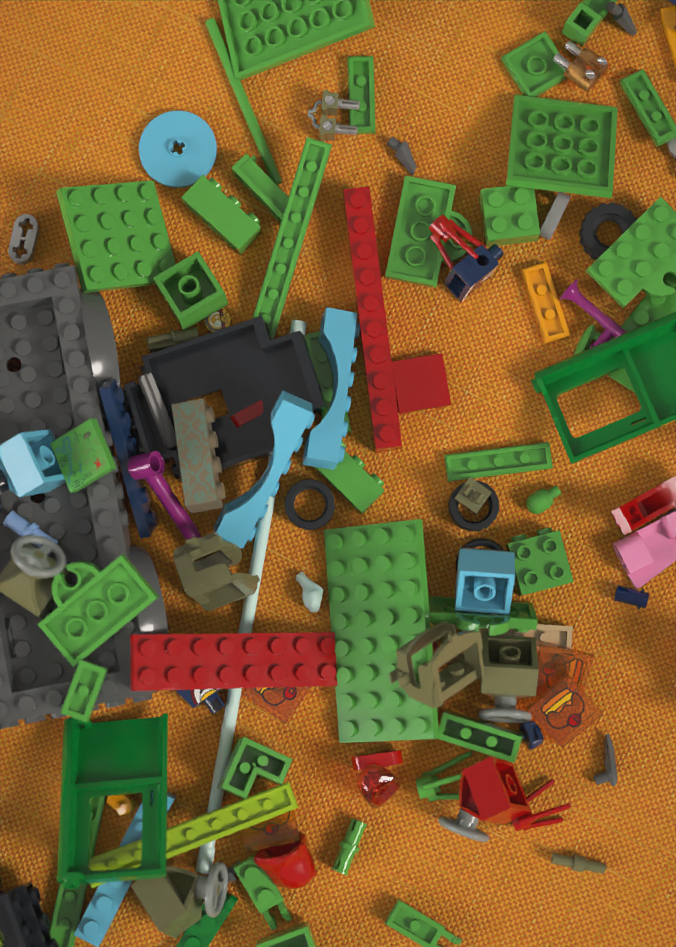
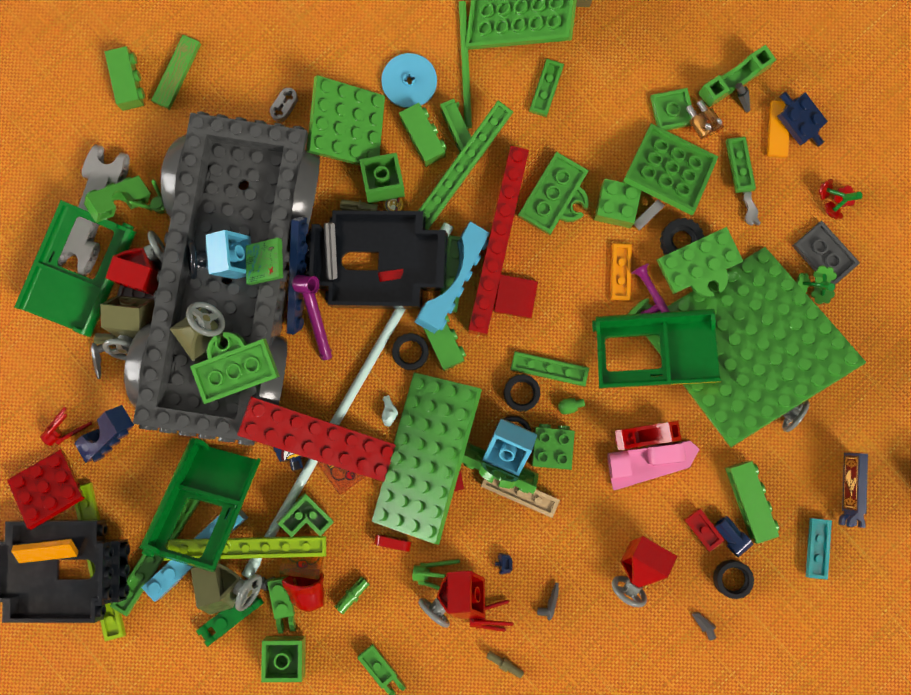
camera: 20 degrees right, 0 degrees up
(23, 527) = (207, 296): light blue pin -> none
(84, 690) = (204, 423): bright green plate -> none
(122, 803) = (209, 509): light orange piece -> none
(197, 455) = (344, 291): dark tan brick -> none
(210, 578) = (322, 377): olive animal -> none
(240, 515) = (359, 342): medium azure arch -> none
(330, 106) = (516, 100): piece -> none
(377, 785) = (385, 560): clear red piece -> none
(403, 153) = (561, 137): dark grey bar -> none
(434, 685) = (472, 503): olive animal -> none
(445, 230) = (570, 197): red plant -> none
(472, 272) = (579, 232): dark blue torso -> none
(472, 495) = (523, 385): olive tile -> none
(480, 736) = (468, 552): bright green brick -> none
(509, 674) = (502, 517): olive piece -> none
(557, 661) = (539, 529): clear orange tile -> none
(564, 710) = (533, 556): clear orange tile -> none
(631, 596) = (608, 494): clear blue pin -> none

